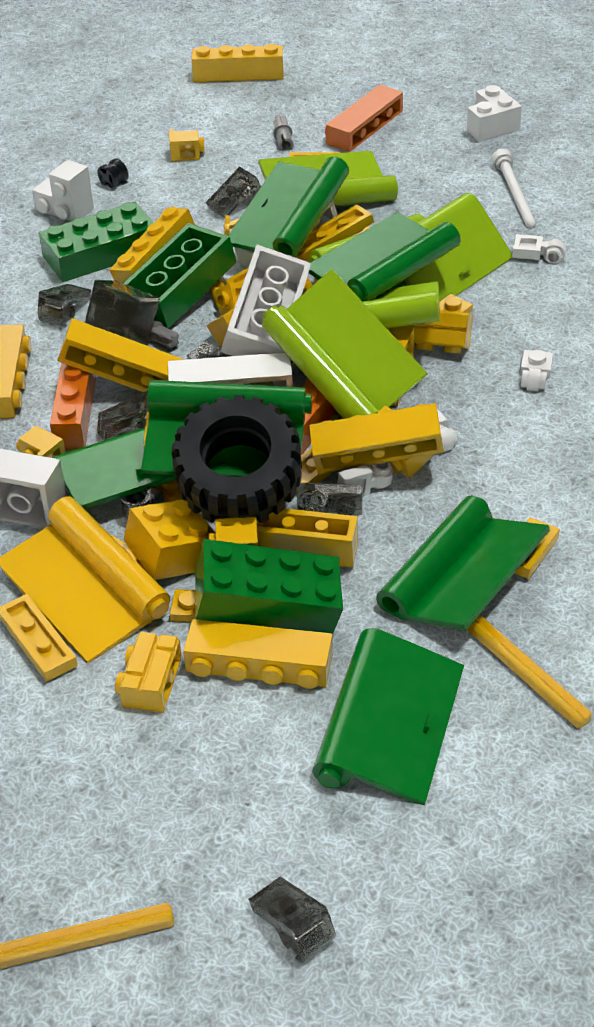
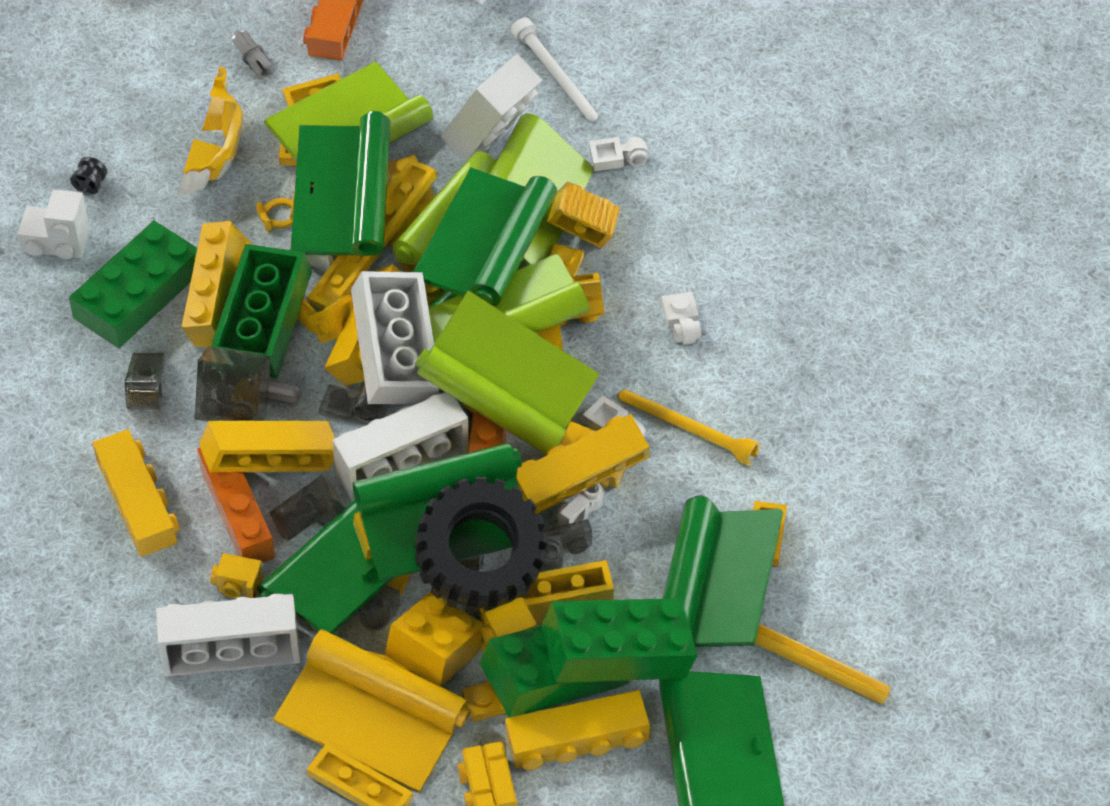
camera: 25 degrees left, 10 degrees up
(185, 145) = (150, 108): yellow brick -> none
(206, 179) = (206, 159): none -> yellow animal
(237, 189) = (252, 163): clear smoke plate -> none
(326, 576) = (618, 640): none -> green brick
(439, 174) = (492, 108): none -> white brick
(483, 275) = (584, 214): none -> yellow brick
(537, 475) = (740, 448): none -> yellow piece

